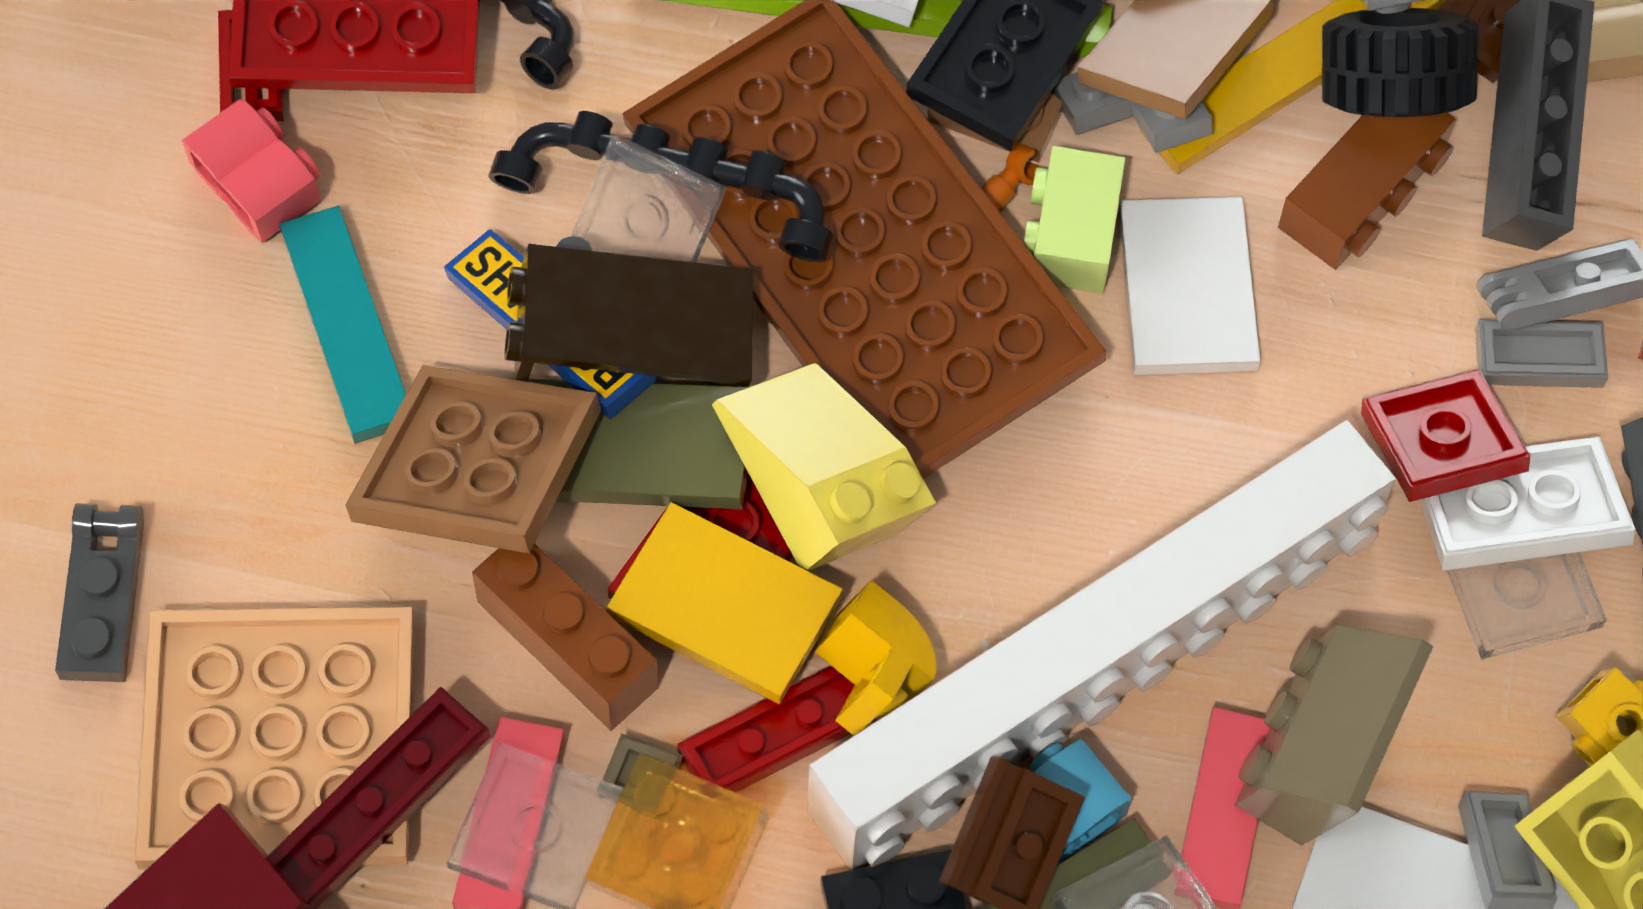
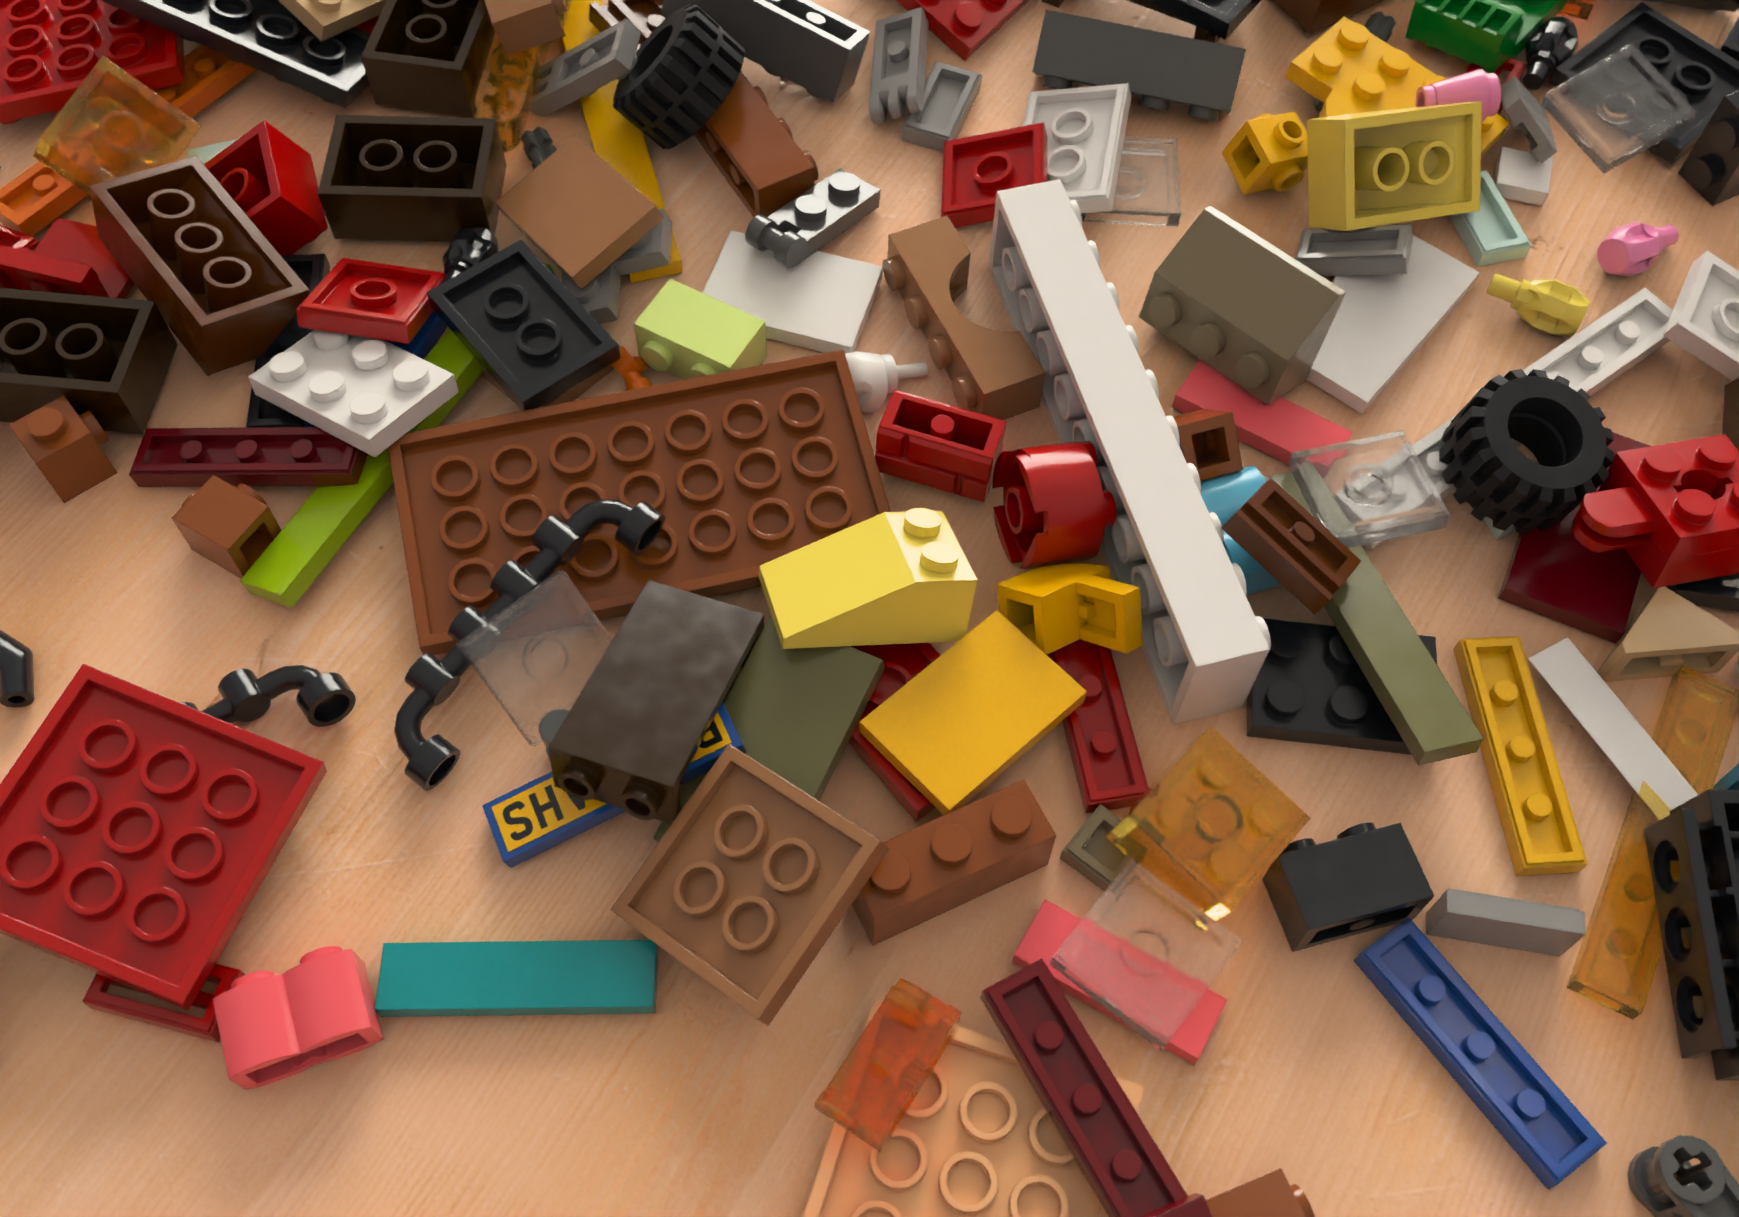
camera: 70 degrees left, 5 degrees down
(346, 632) = (889, 1063): none -> clear orange hinge
(989, 599) = (1051, 504): none -> red brick
(1026, 482) = (939, 445): none -> red brick
(1110, 396) = (877, 376): none -> white piece
(1135, 736) = (1209, 442): none -> dark orange brick
(1267, 412) = (987, 367): none -> medium nougat arch
(1293, 270) = (813, 217): none -> dark grey plate

